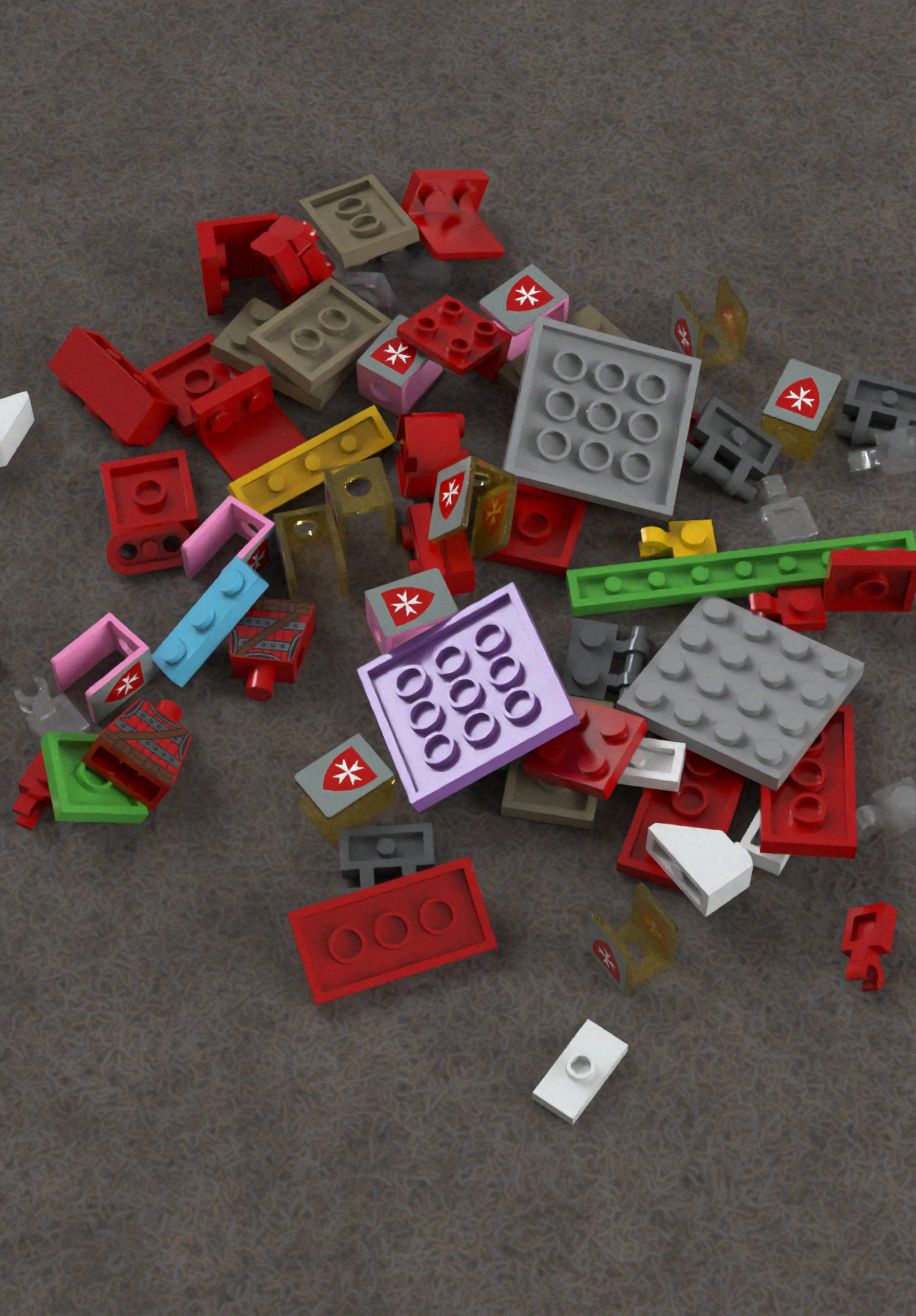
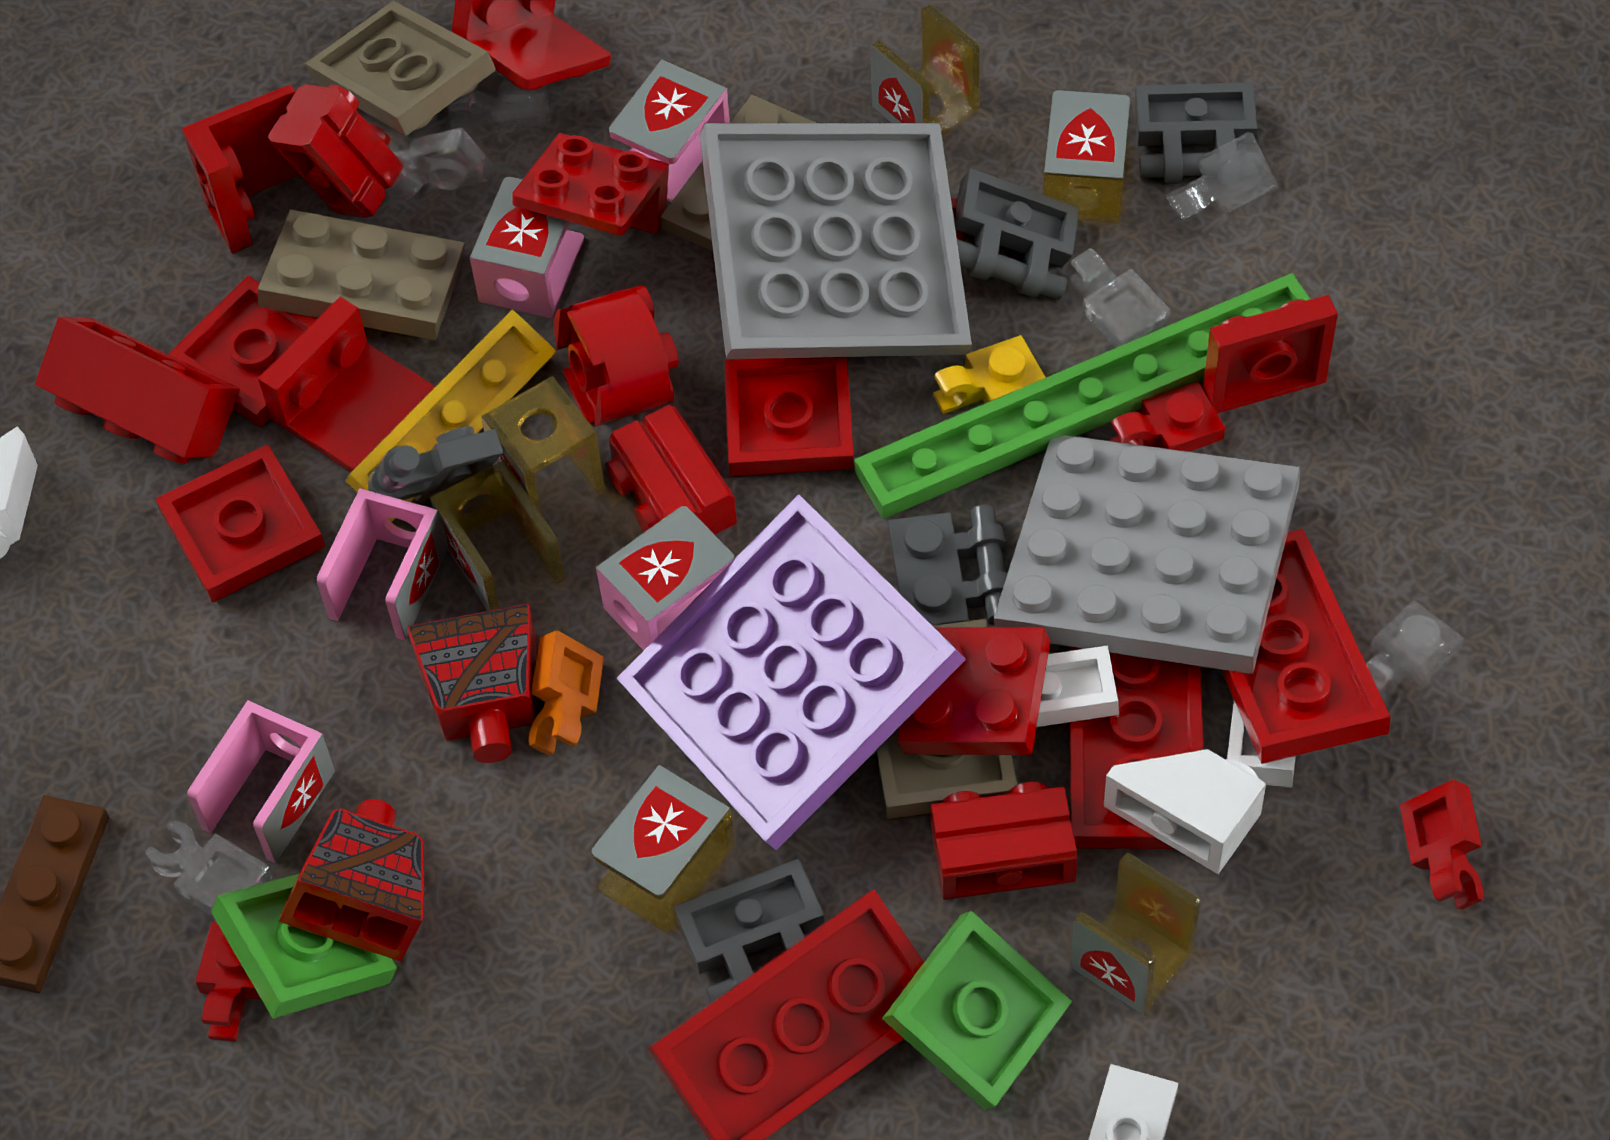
camera: 15 degrees left, 0 degrees up
(150, 552) = (266, 598): red plate -> none
(209, 621) = (391, 672): medium azure plate -> none
(291, 494) = (456, 457): none -> dark grey plate
(318, 334) = (403, 235): dark tan plate -> none
(323, 662) = (569, 683): none -> orange plate
(493, 508) = (705, 405): clear yellow piece -> none
(511, 956) = (977, 1010): none -> bright green plate
(570, 852) = (1003, 841): none -> red brick

